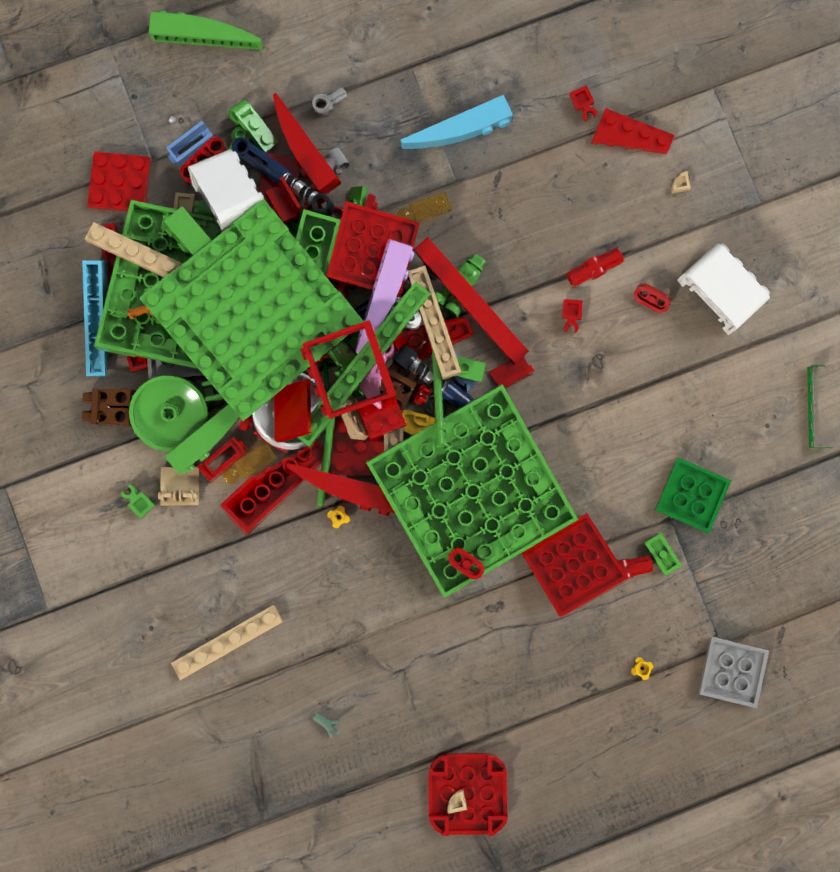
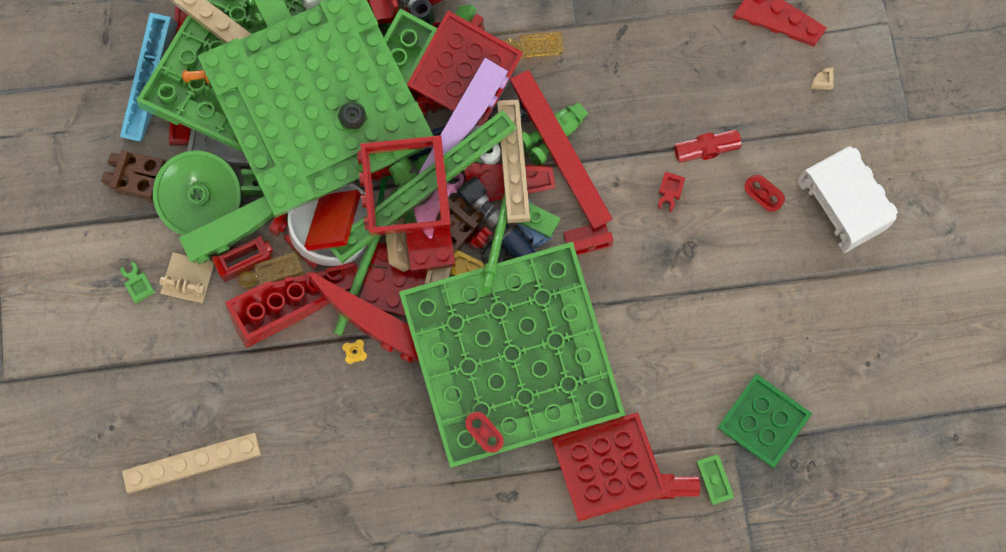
camera: 15 degrees right, 10 degrees down
(284, 324) = (352, 122): none -> pearl dark grey plate
(810, 401) = (921, 359): green piece -> none

